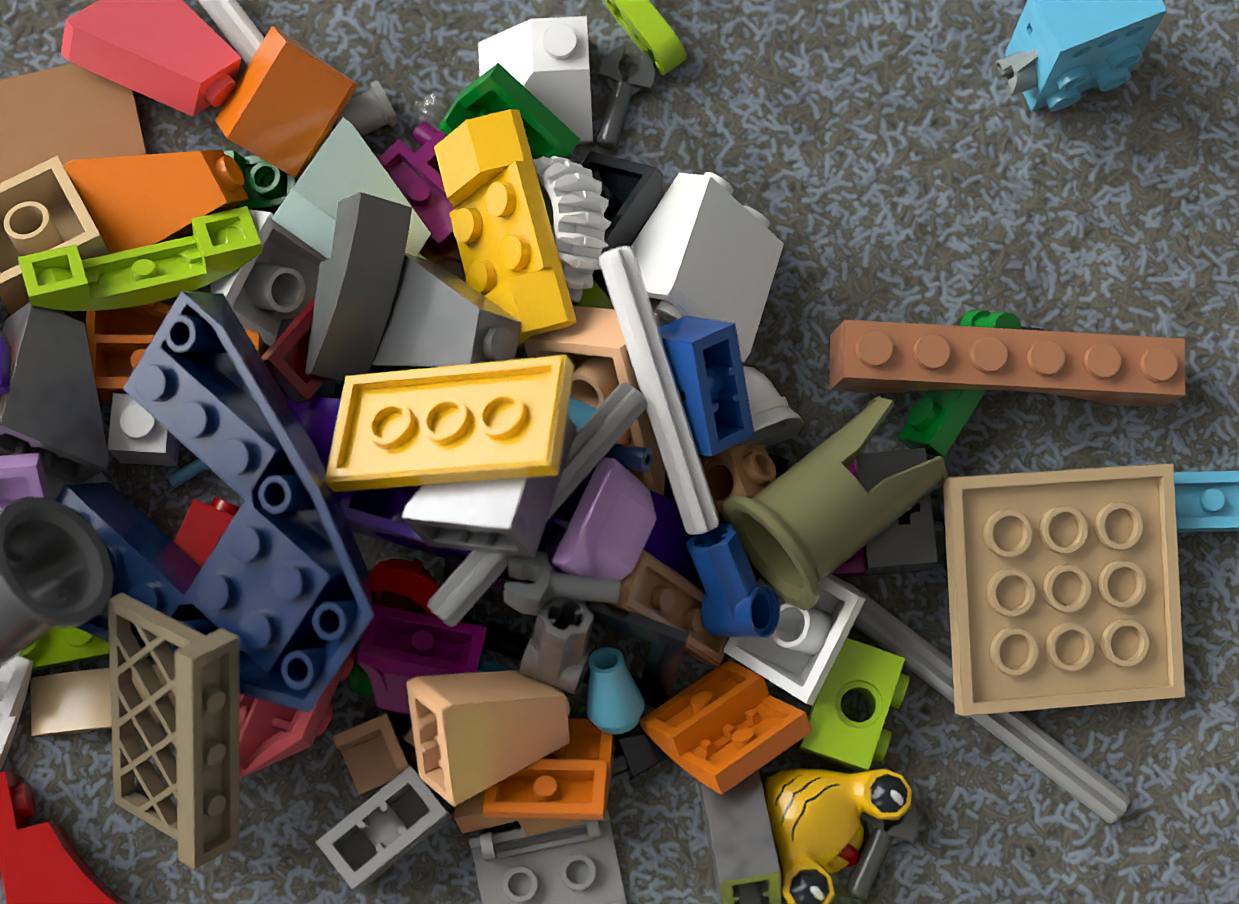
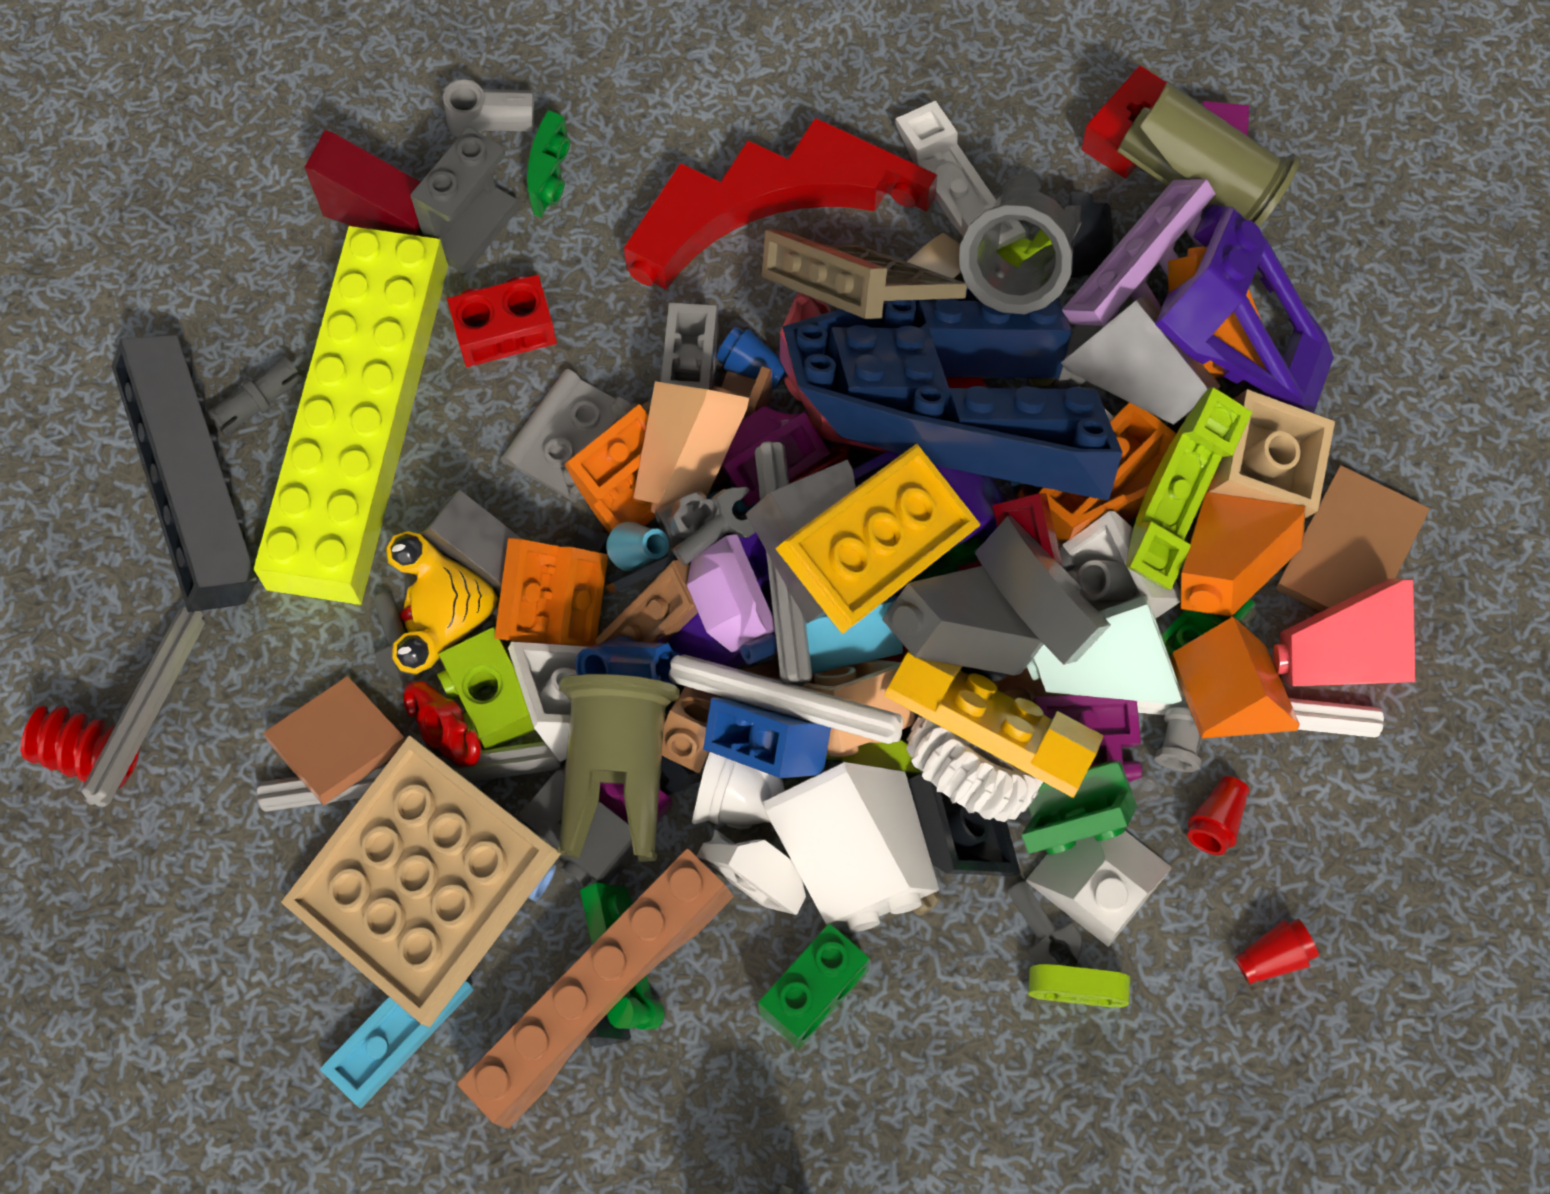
camera: 135 degrees right, 10 degrees down
(326, 785) = (746, 354): none -> blue cone
(403, 36) = (1219, 817): none -> red cone
(804, 335) = (757, 871): none -> white slope
(839, 212) = (814, 986): none -> green brick
(919, 712) = (441, 723): none -> red piece
(1018, 791) = (335, 740): none -> nougat tile

